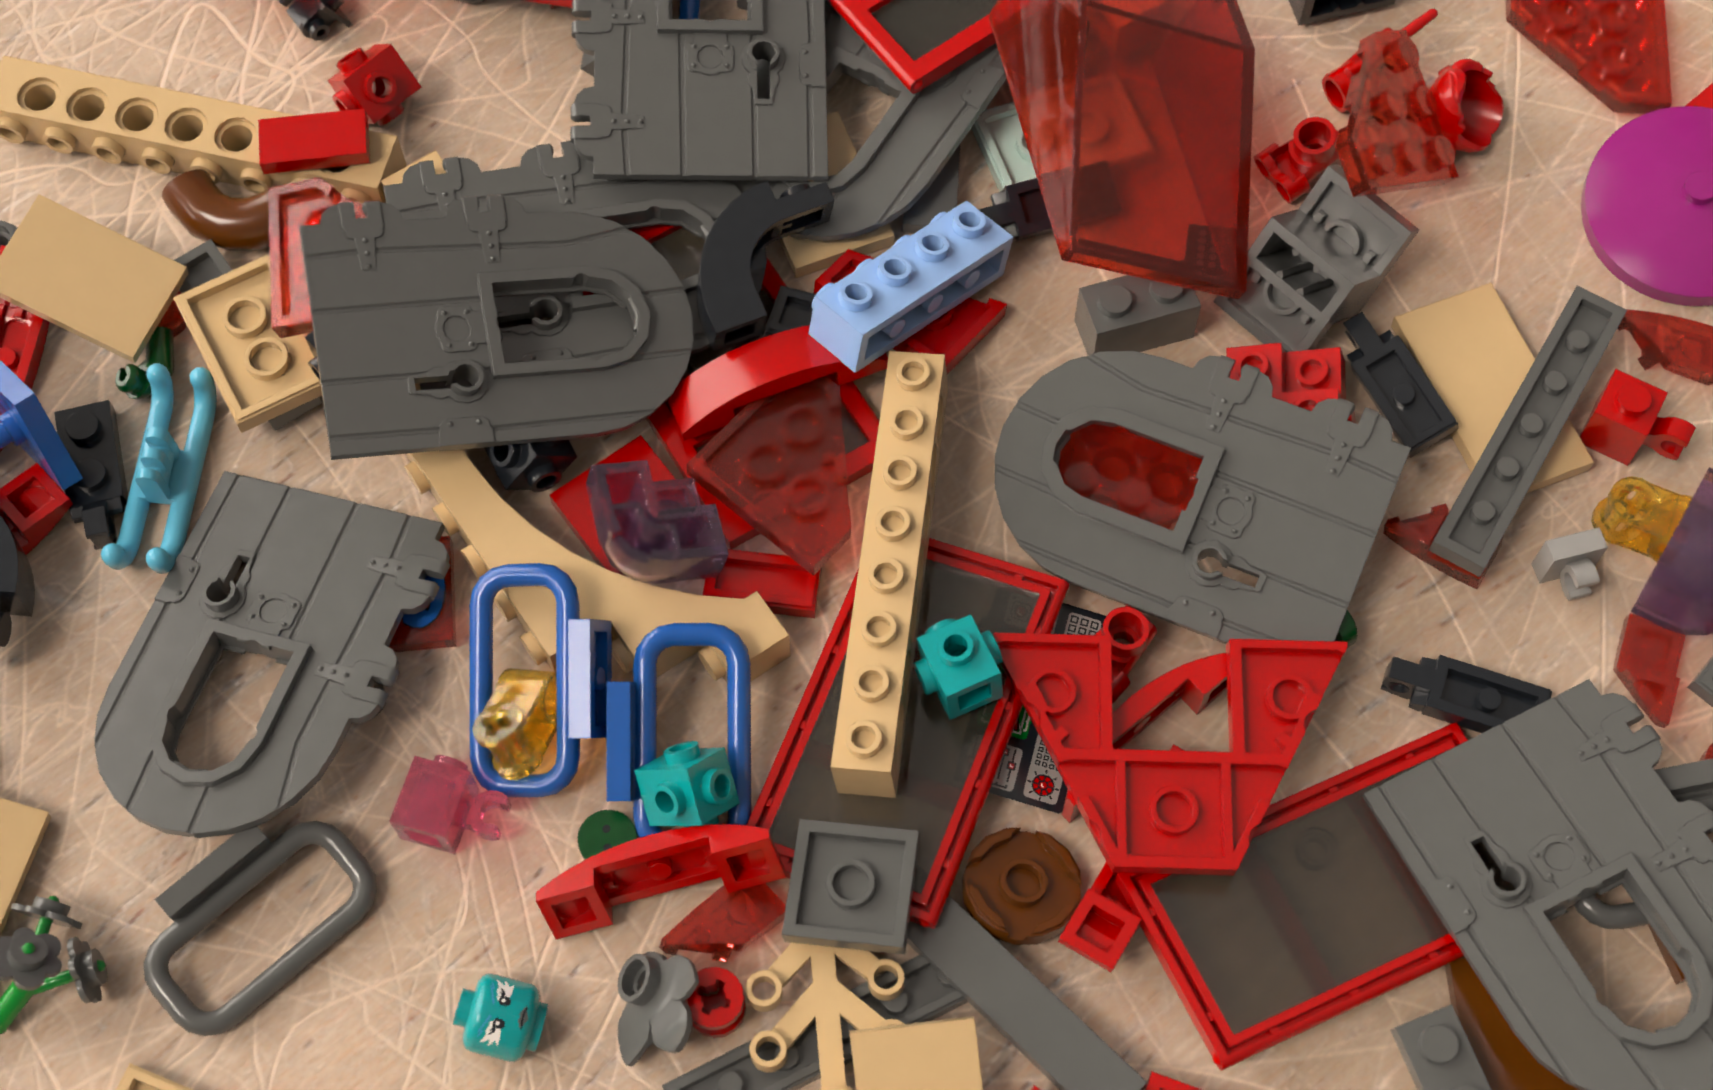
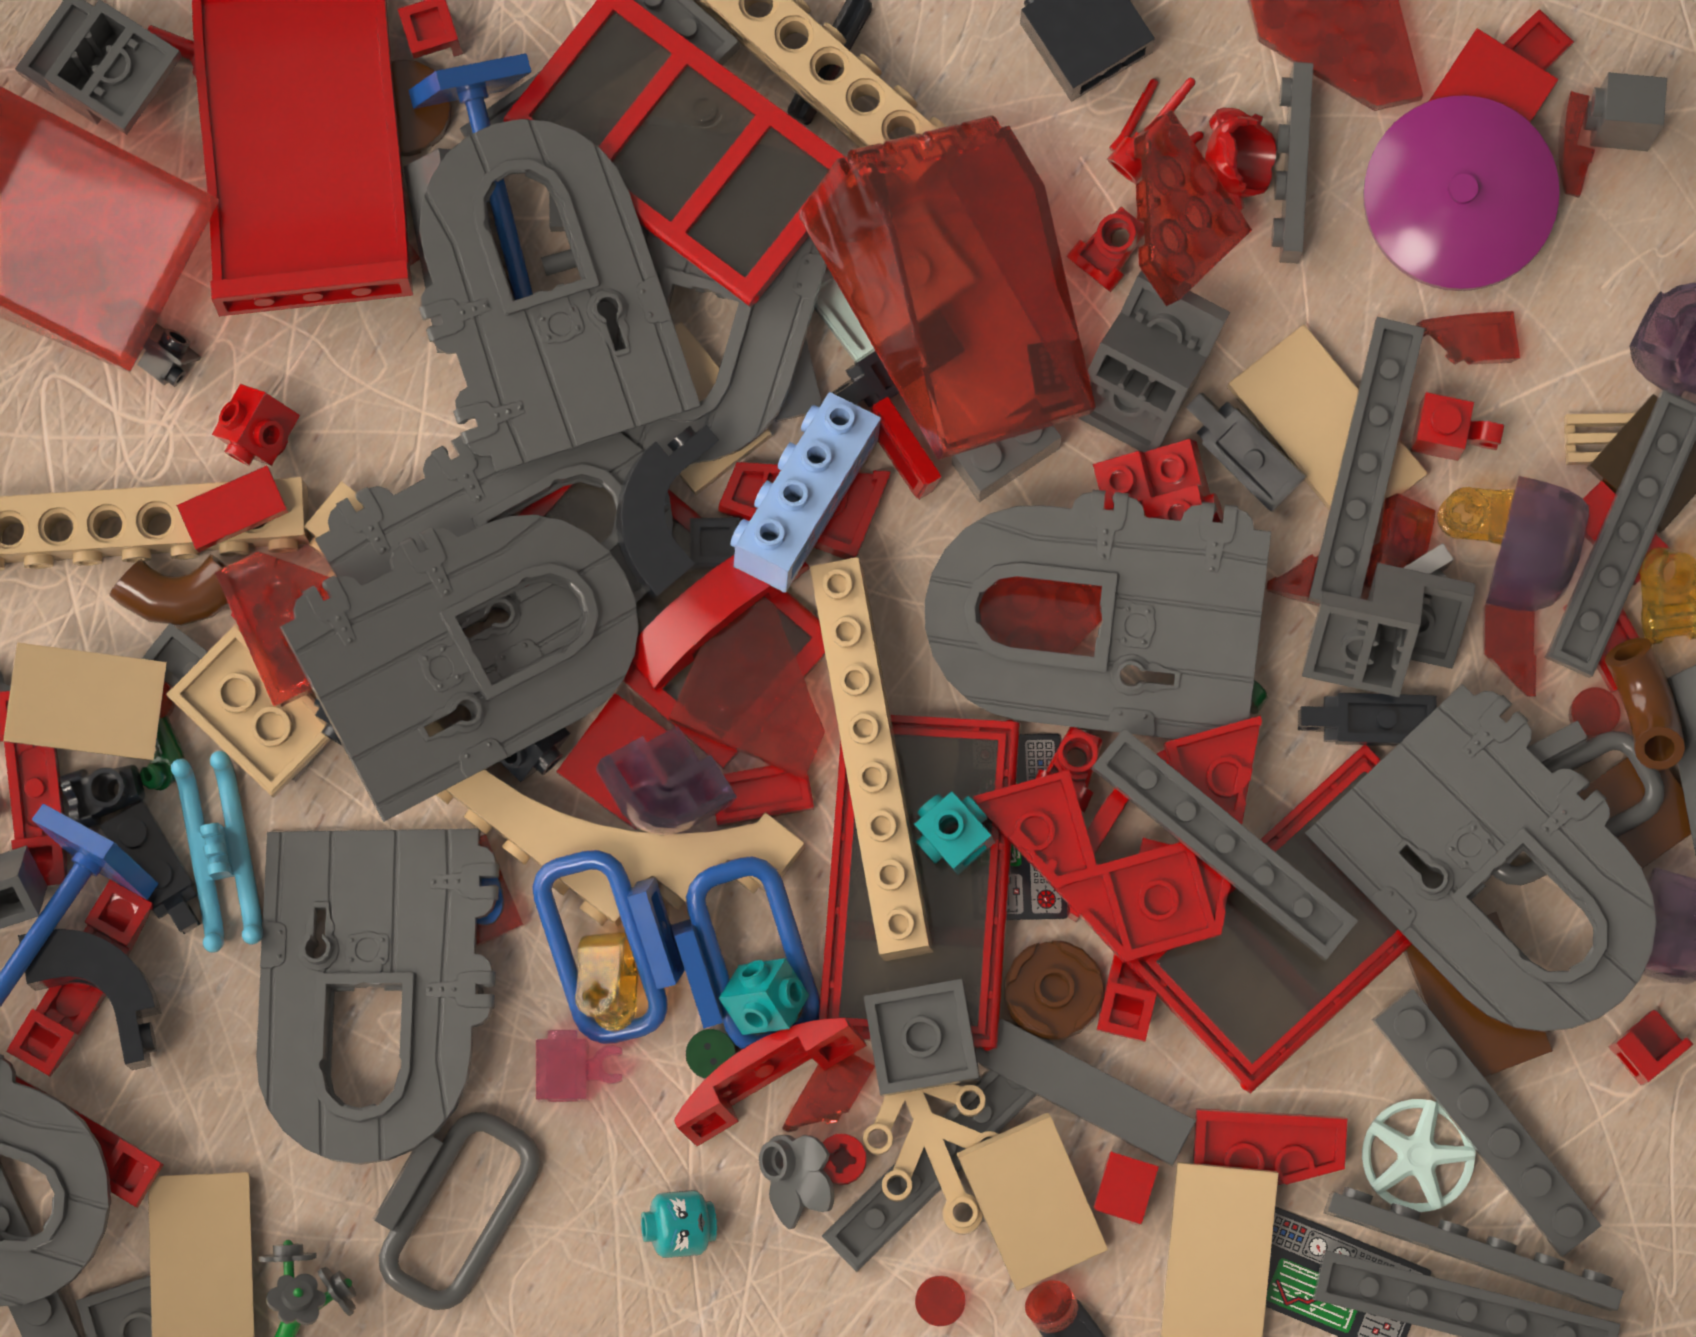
camera: 15 degrees left, 15 degrees up
(72, 379) = (94, 796): none -> black plate
(1029, 286) = (905, 450): none -> red tile
(1272, 767) = (1224, 844): none -> dark grey plate
(1511, 147) = (1292, 182): none -> dark grey plate
(1517, 595) = (1374, 639): none -> dark grey bracket
(1553, 512) = (1404, 534): none -> clear red slope

